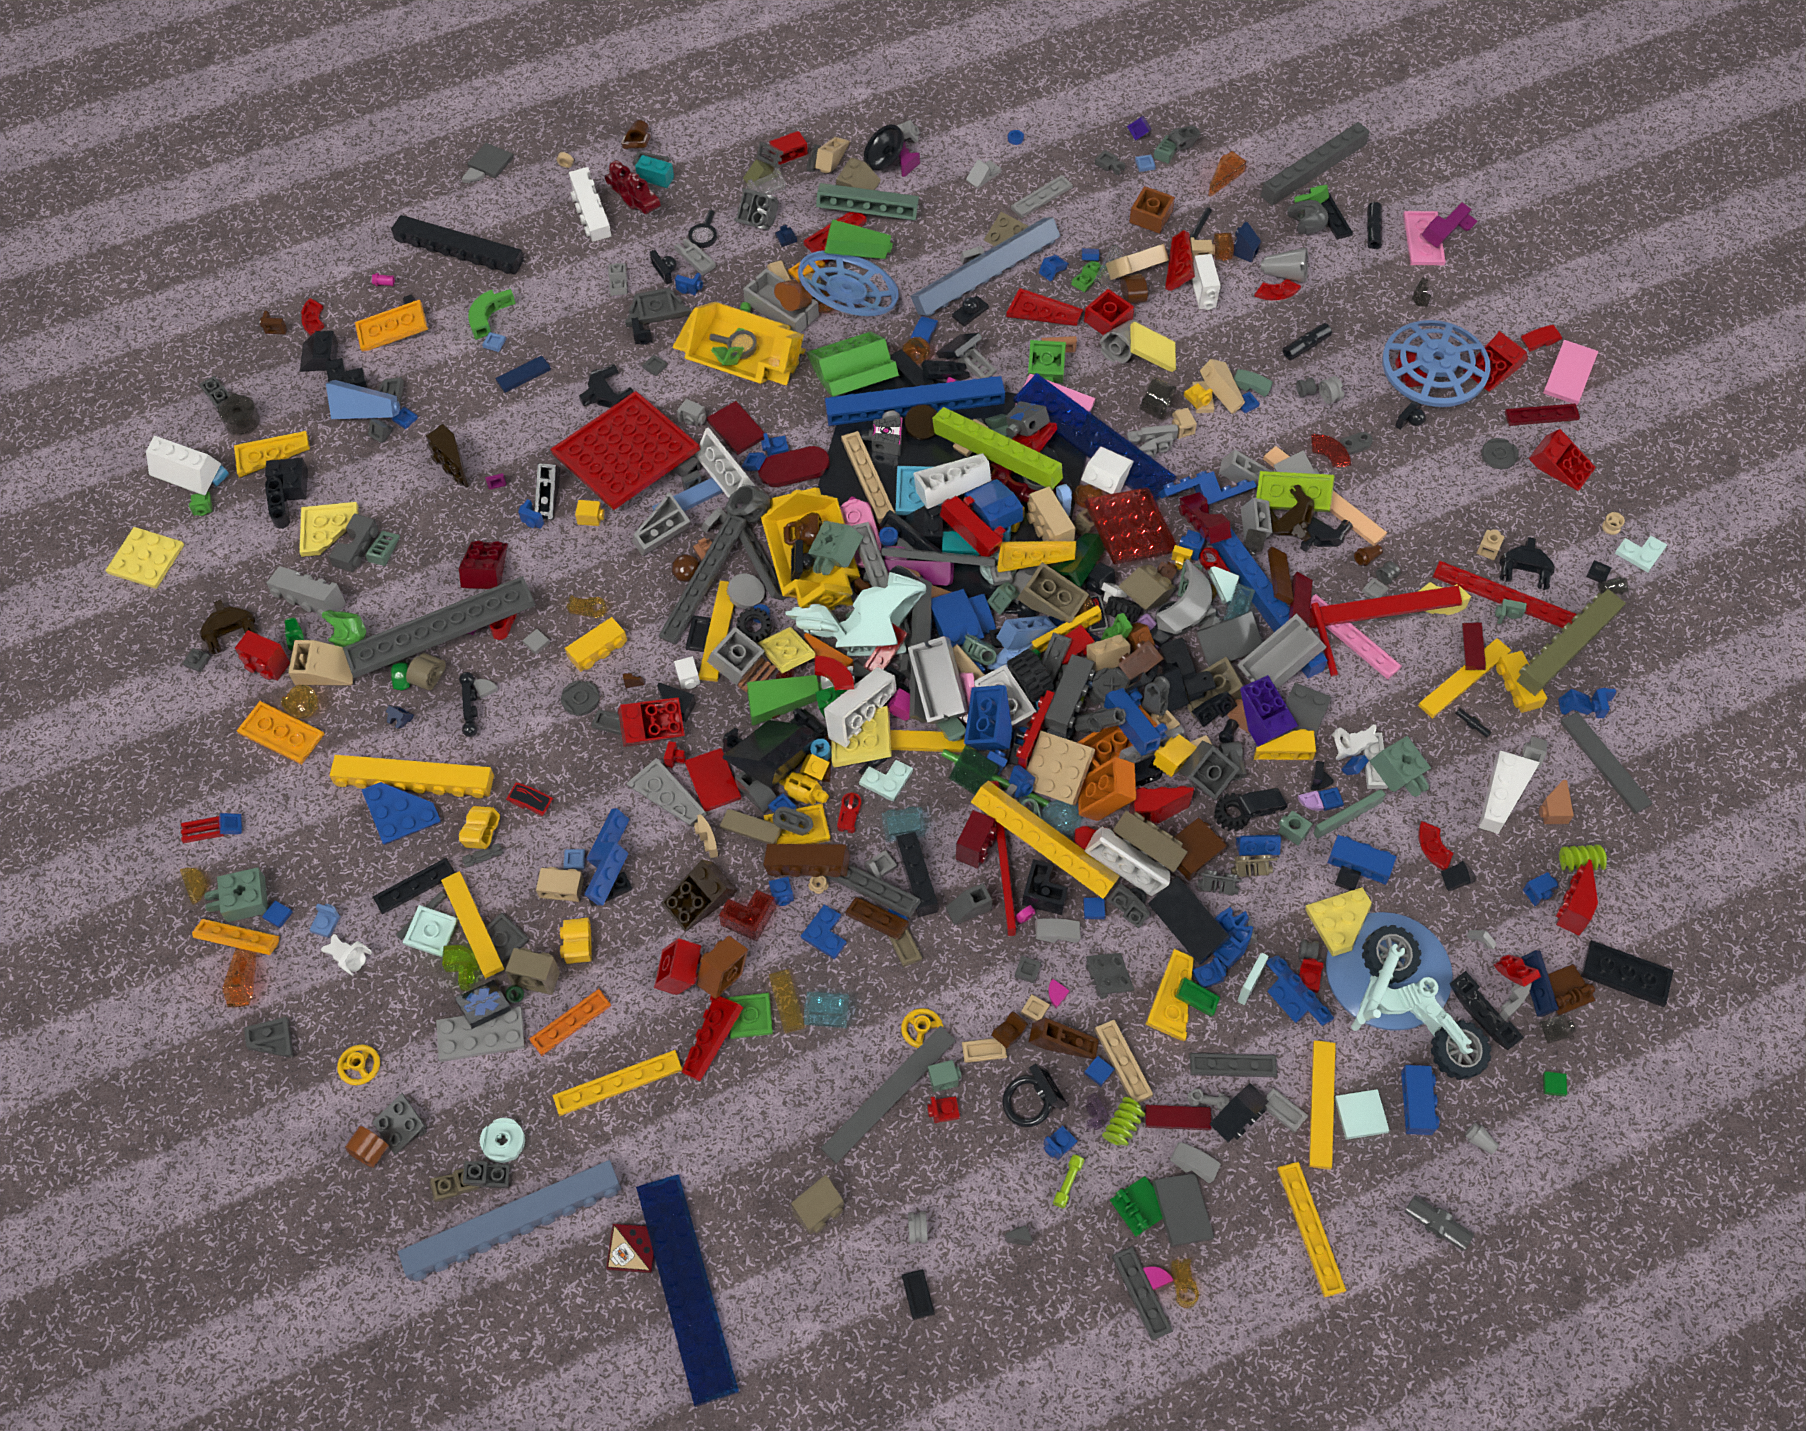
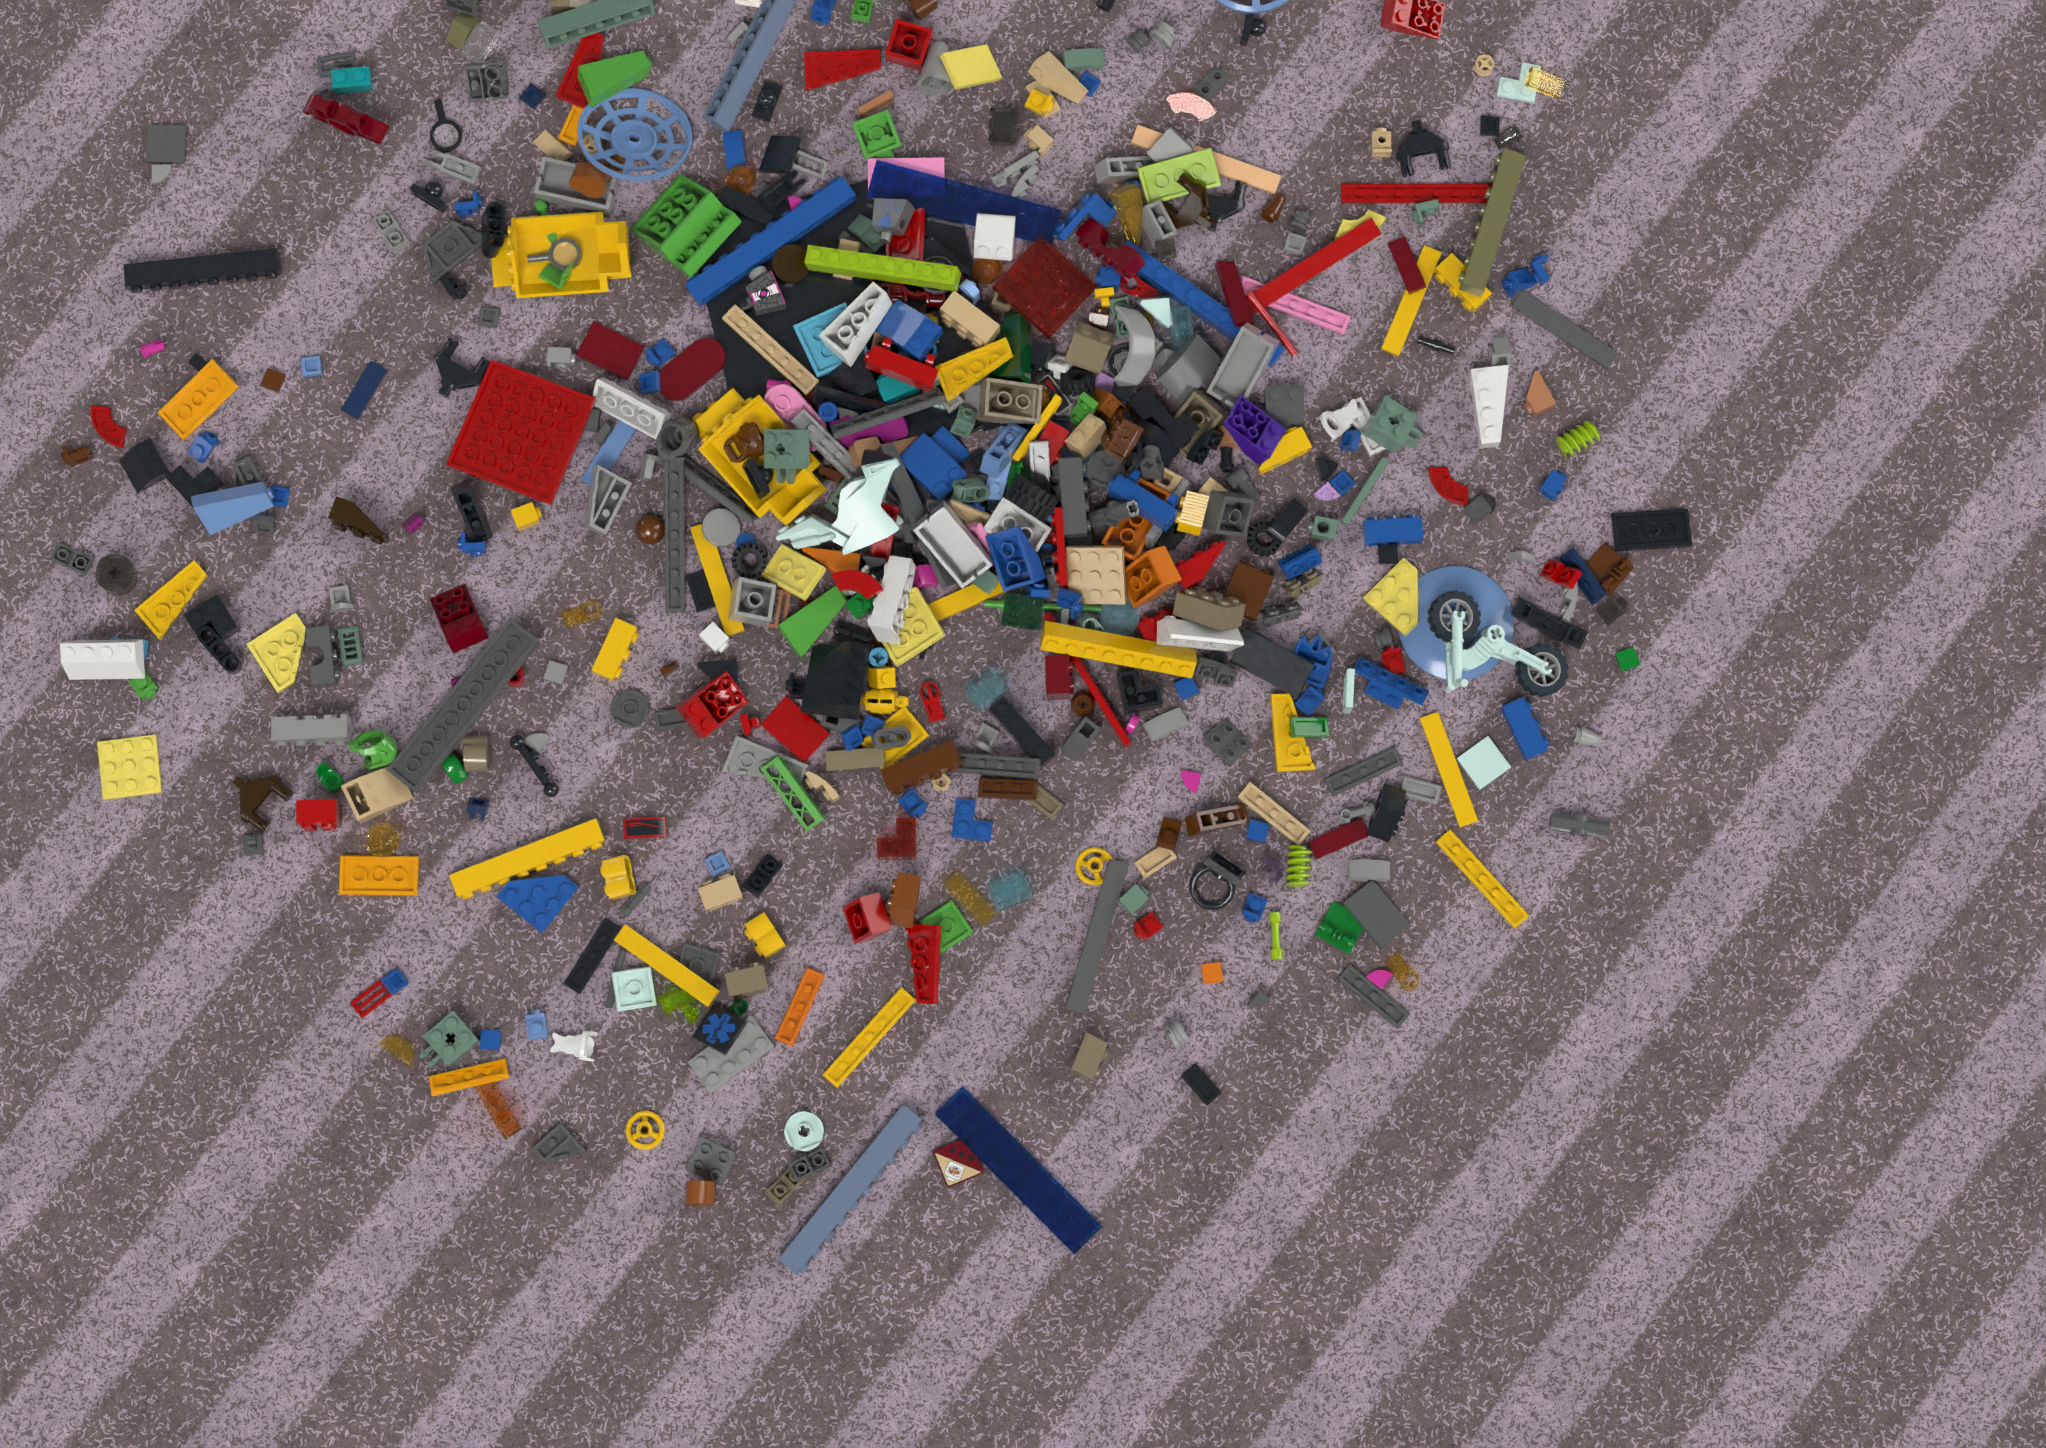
camera: 30 degrees left, 20 degrees up
(372, 357) = (203, 446): none -> blue bracket
(400, 510) = (340, 599): none -> light grey tile
(458, 338) = (273, 380): none -> reddish brown tile
(484, 307) = (277, 336): bright green arch -> none
(565, 160) = (247, 108): tan tile -> none
(589, 205) = (312, 159): white wedge -> none
(607, 857) = (748, 849): blue bracket -> none
(636, 136) = (305, 41): reddish brown piece -> none
(682, 828) = (799, 791): none -> bright green fence
(698, 894) = (844, 843): dark brown slope -> none
(699, 297) = (492, 230): none -> black beam
(702, 547) = (655, 501): nougat tile -> none
(757, 805) = (851, 737): none -> blue tile
(889, 784) = (953, 658): light aqua plate -> none
(985, 1186) = (1212, 973): none -> orange tile
(992, 872) = (1082, 710): none -> reddish brown plate
(1028, 969) = (1157, 772): dark grey plate -> none
(1035, 1008) = (1179, 803): tan tile -> none
(1236, 496) = (1129, 210): none -> clear yellow slope
(1280, 575) = (1204, 275): reddish brown tile -> none
(1502, 458) = (1350, 31): dark grey tile -> none
(1579, 901) = (1591, 487): red slope -> none
(1666, 557) = (1545, 82): none -> clear yellow tile

